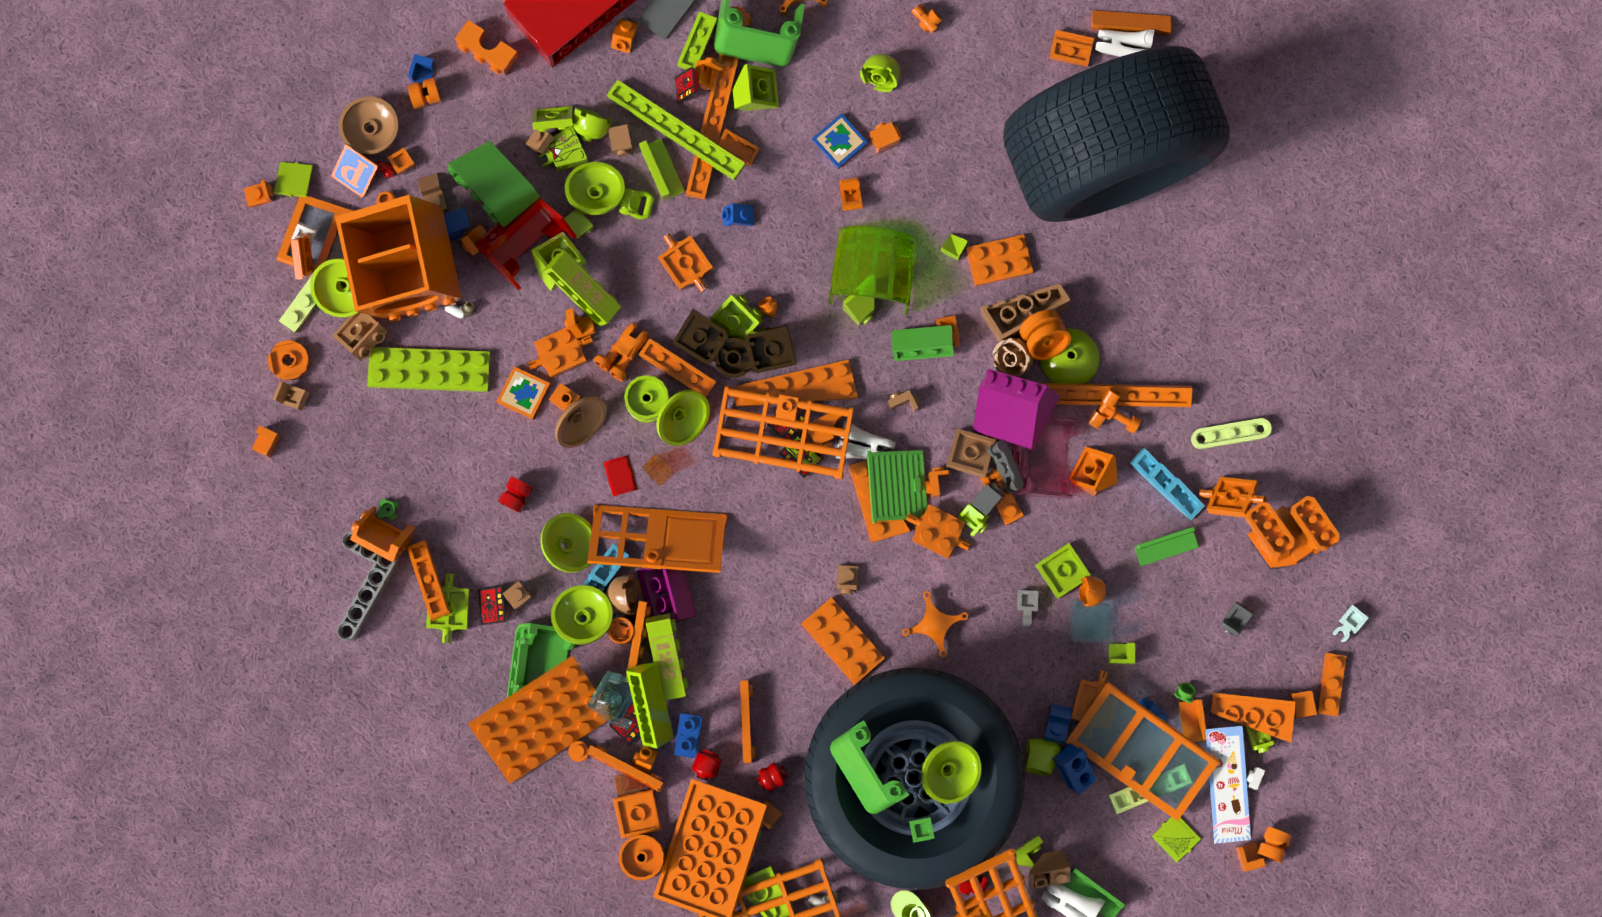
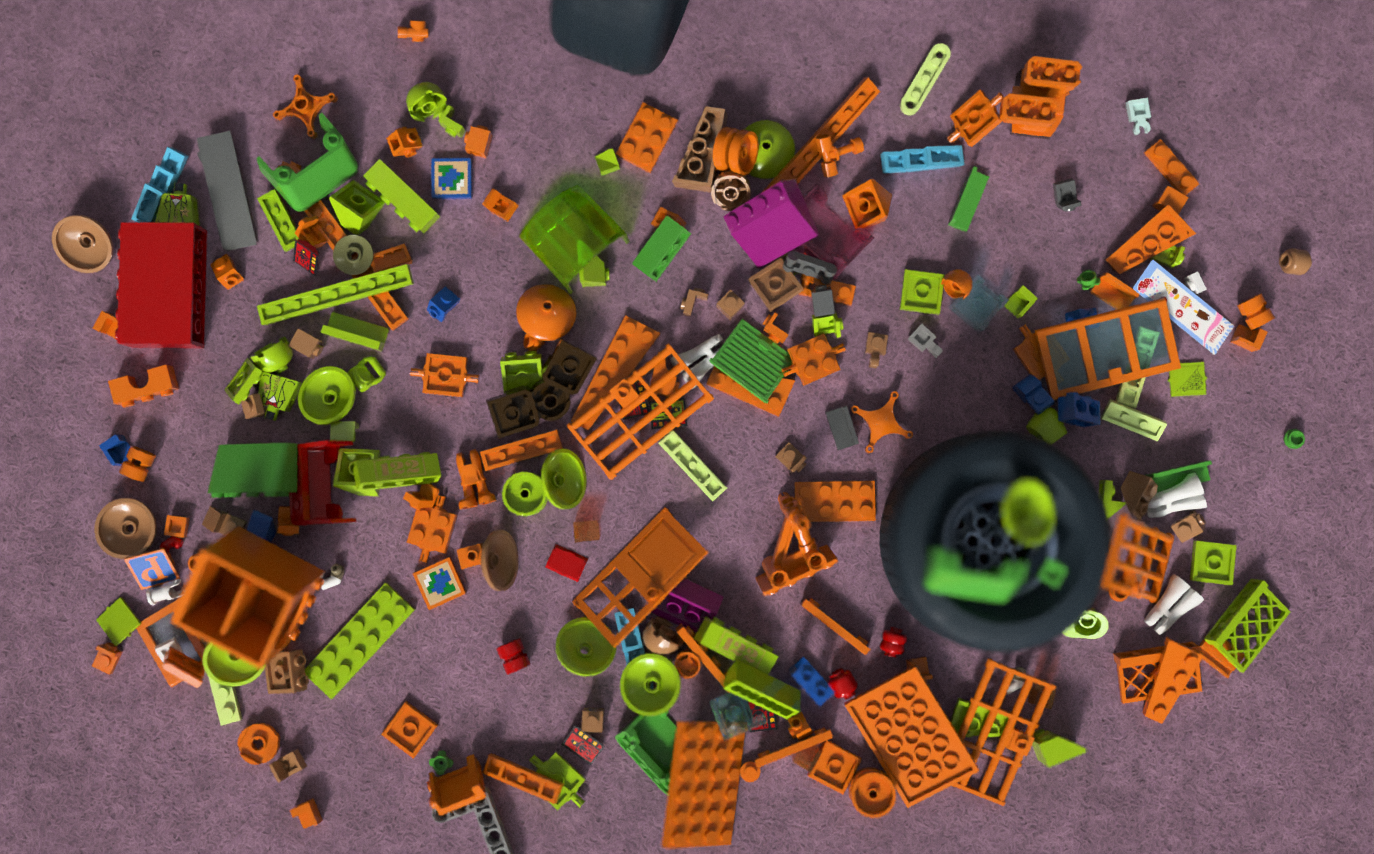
camera: 50 degrees left, 5 degrees up
(344, 194) = (163, 592): none -> white piece
(393, 464) = (409, 729): none -> orange tile
(717, 108) = (346, 248): none -> olive dish
(769, 650) = (809, 559): none -> orange plate
(777, 508) = (692, 465): none -> yellowish green plate
(790, 305) = (542, 322): none -> orange dish
(793, 115) = (398, 193): none -> lime brick
(836, 83) = (404, 142): none -> orange brick
(878, 107) = (451, 126): none -> lime bracket
(903, 598) = (842, 428): none -> dark grey panel
(925, 431) = (730, 304): none -> medium nougat brick
(990, 571) = (876, 346): none -> medium nougat plate
(1106, 820) = (1133, 420): none -> yellowish green plate
(1342, 843) = (1295, 261): none -> medium nougat head

